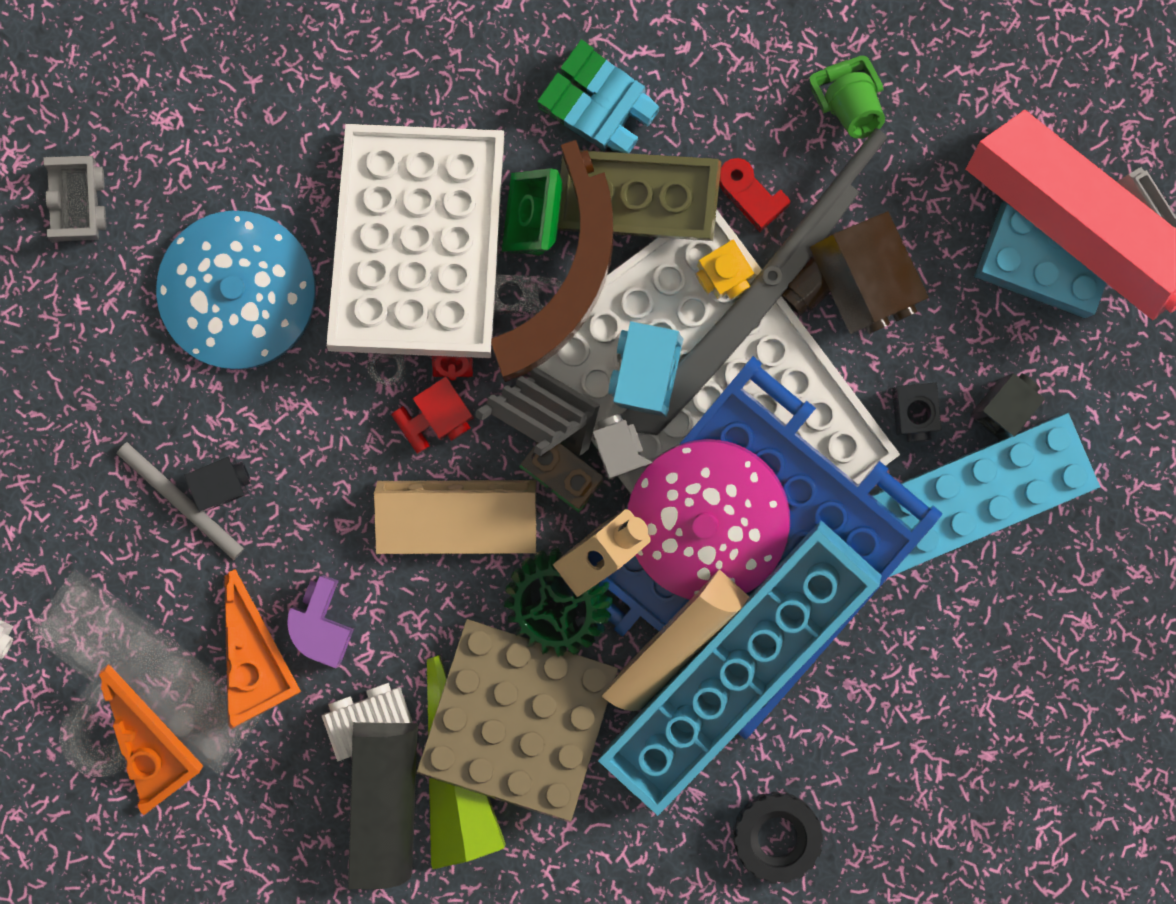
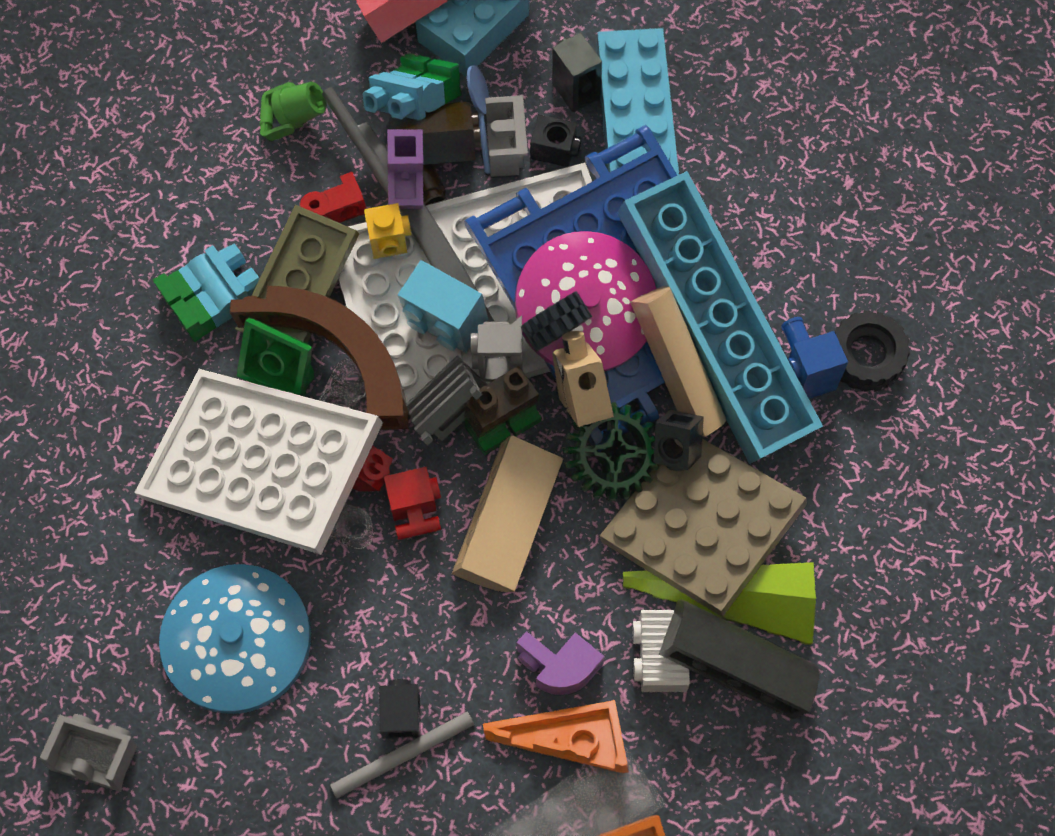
camera: 70 degrees left, 20 degrees down
(585, 670) = (687, 430): none -> black brick
(653, 503) = (556, 321): none -> black bush
(730, 779) = (815, 360): none -> blue brick
(796, 266) = (405, 168): none -> medium lavender brick
(900, 355) = (506, 134): none -> light grey window
(916, 229) = (413, 88): none -> medium azure hips
(937, 307) = (478, 92): none -> medium blue piece

